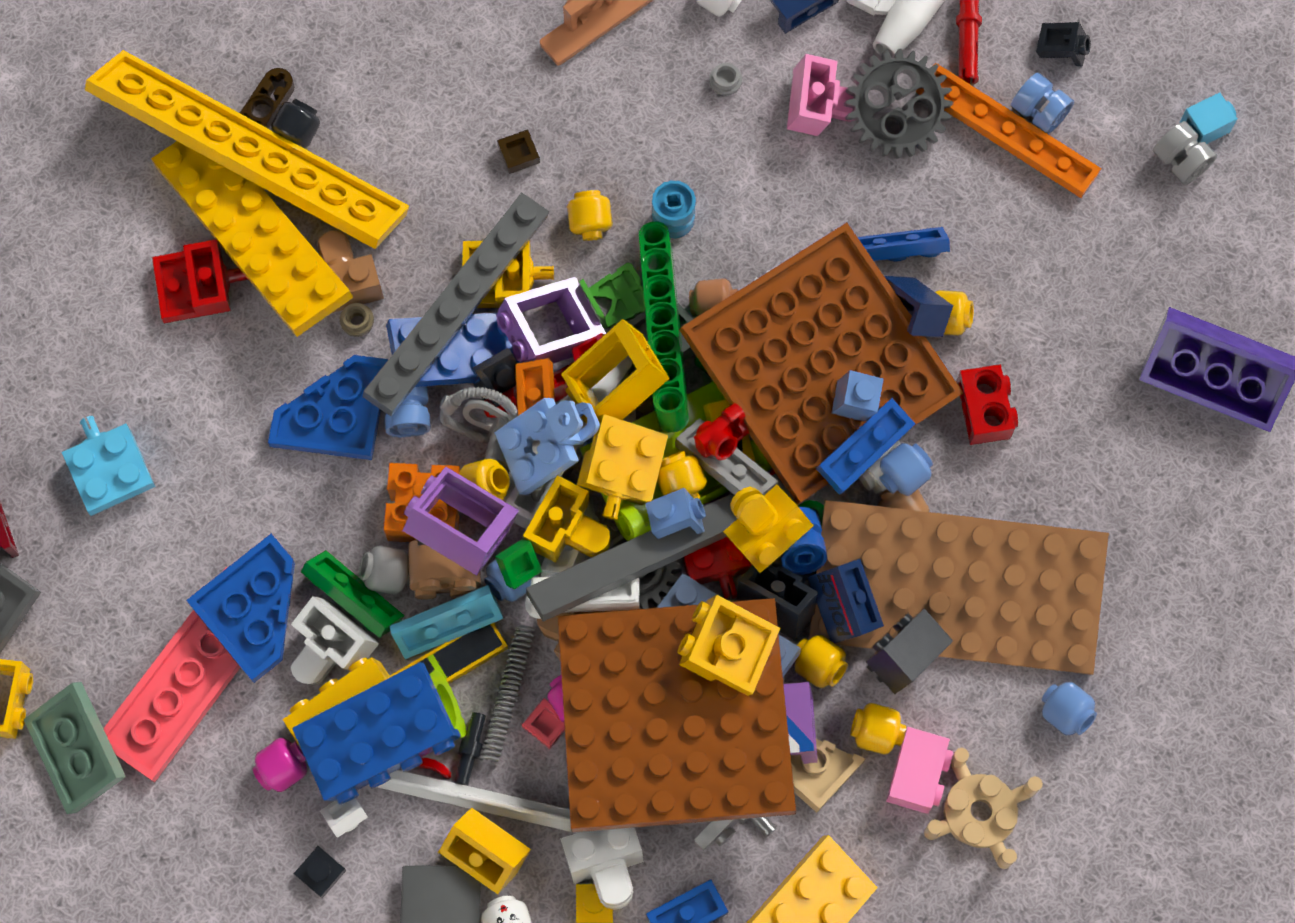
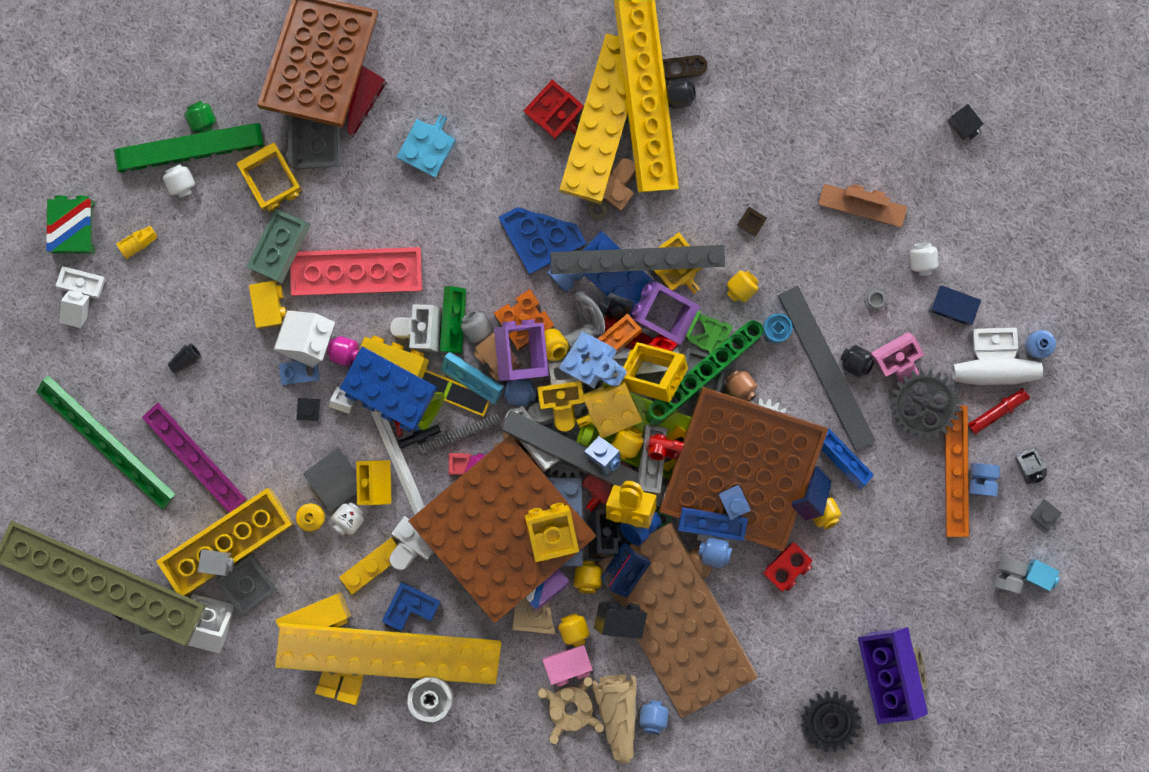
camera: 50 degrees right, 15 degrees up
(138, 821) = (267, 304): none -> yellow brick
(220, 798) = (304, 337): none -> white slope
(250, 606) = (407, 276): blue plate -> none
(258, 848) = (295, 372): none -> medium blue bracket
(518, 563) = (523, 394): green plate -> none
(771, 191) = (826, 368): none -> dark grey tile
(785, 147) = (857, 361): none -> black head
(1029, 747) = (618, 712): none -> tan cone
(1136, 68) = (1046, 514): none -> dark grey plate
(1215, 507) = (840, 731): none -> black gear

